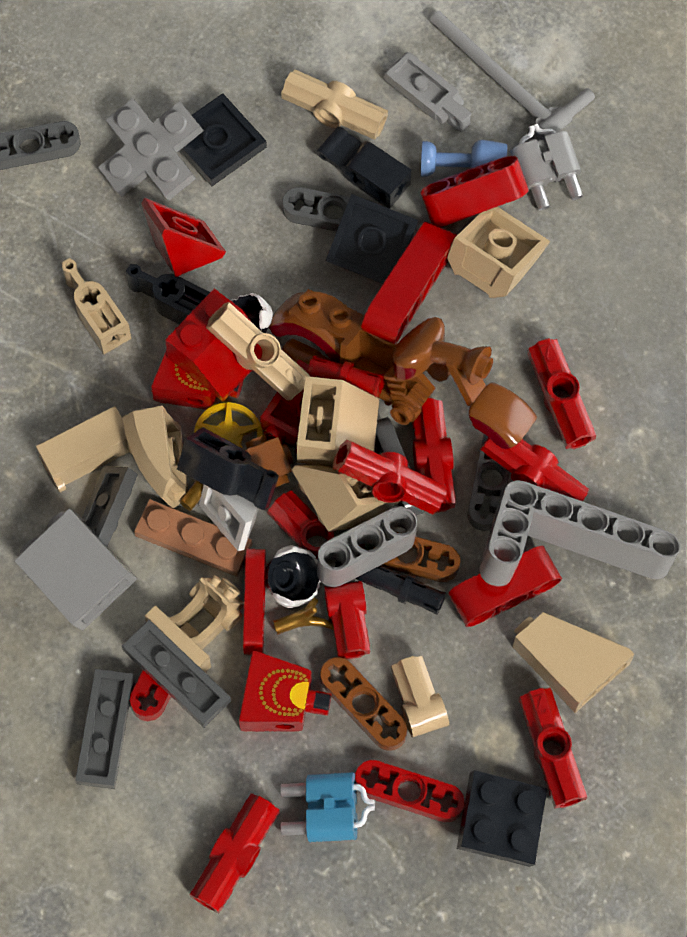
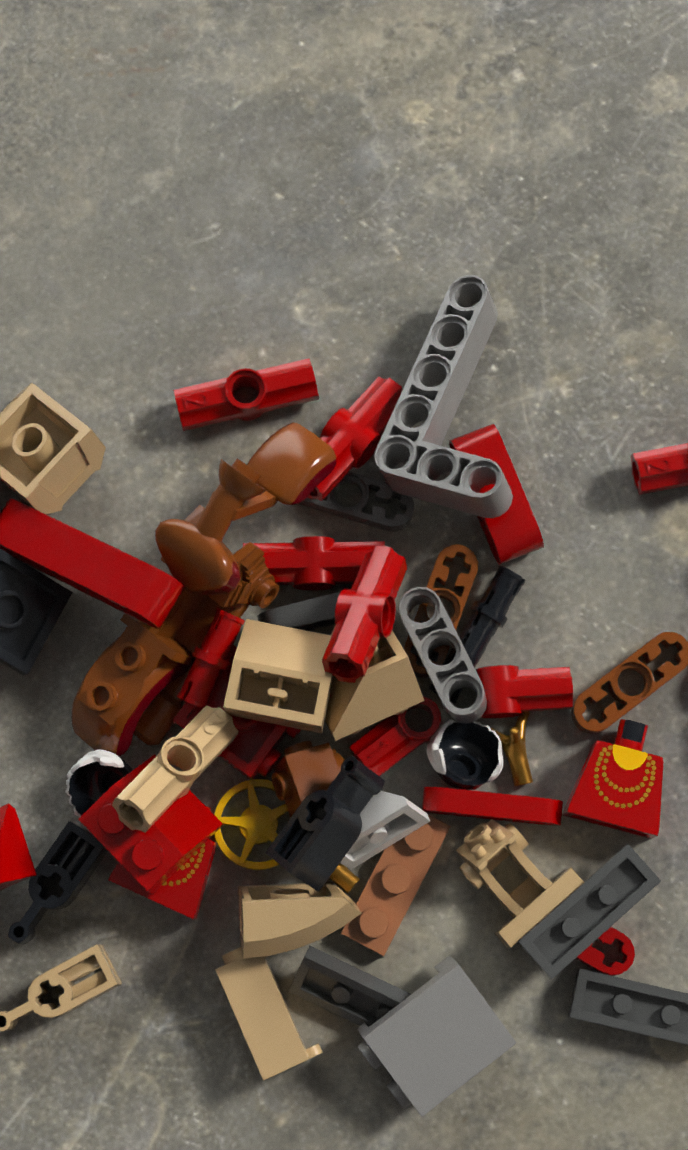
camera: 85 degrees left, 10 degrees up
(421, 705) = (642, 610): tan piece -> none
(570, 658) = (596, 427): tan slope -> none

